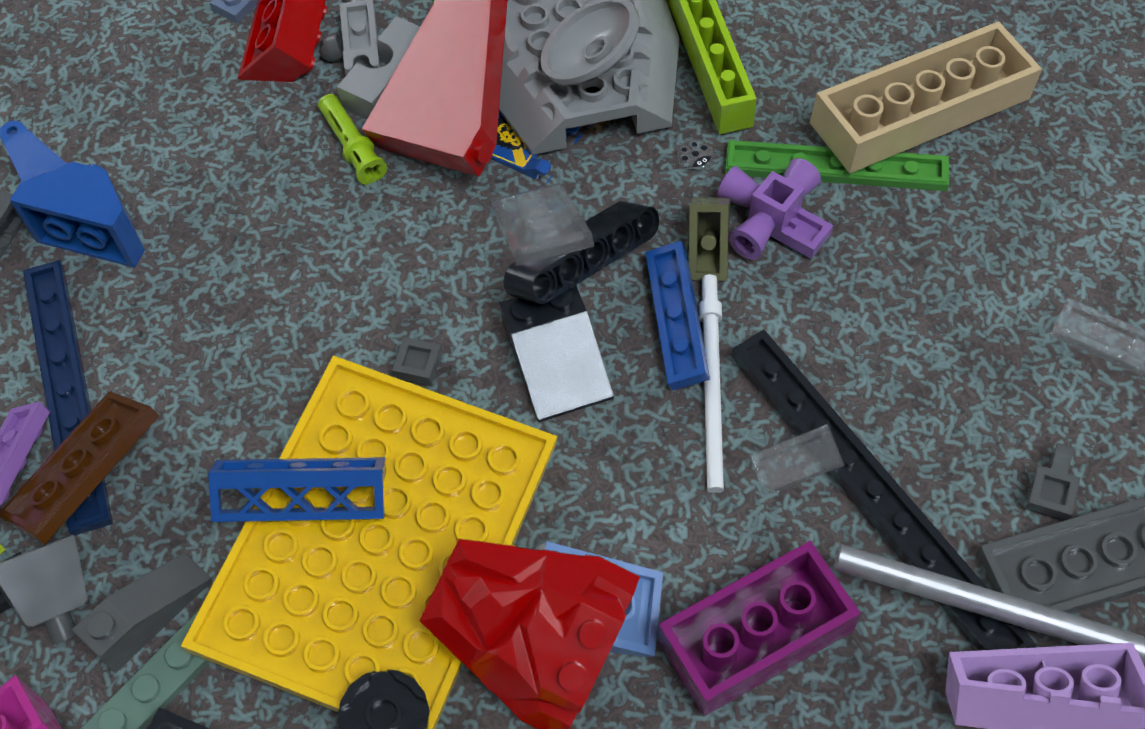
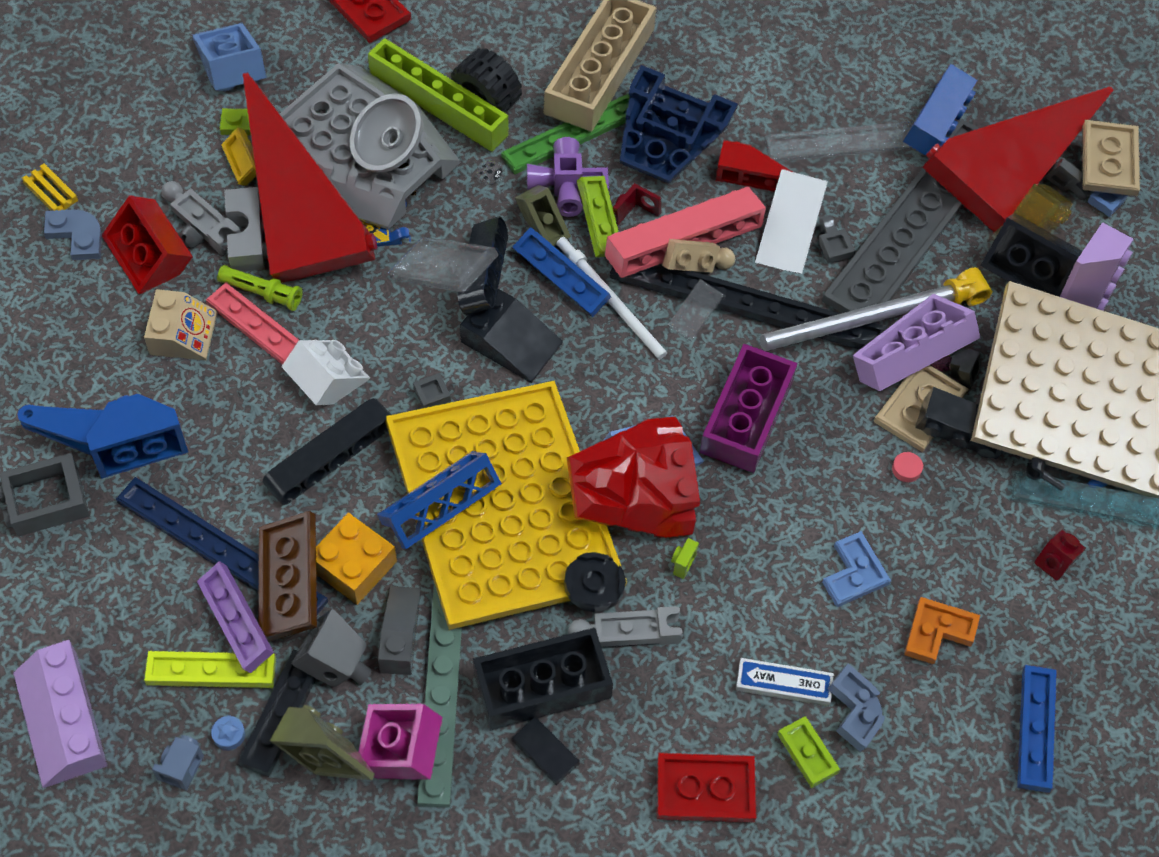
camera: 45 degrees left, 0 degrees up
(164, 493) = (353, 558): none -> light orange brick
(236, 131) = (179, 326): none -> tan slope
(252, 355) = (326, 451): none -> black beam
(314, 177) = (252, 322): none -> coral tile
(329, 266) = (324, 370): none -> white slope
(767, 49) = (489, 78): none -> black tyre
(773, 275) = (597, 211): none -> lime tile
(826, 279) = (634, 197): none -> dark red bracket
(851, 394) = (697, 256): none -> tan plate
(862, 355) = (705, 222): none -> coral brick
(946, 217) = (668, 126): none -> dark blue wedge
(1013, 324) = (747, 167): none -> red slope
(1014, 425) = (791, 221): none -> white sticker

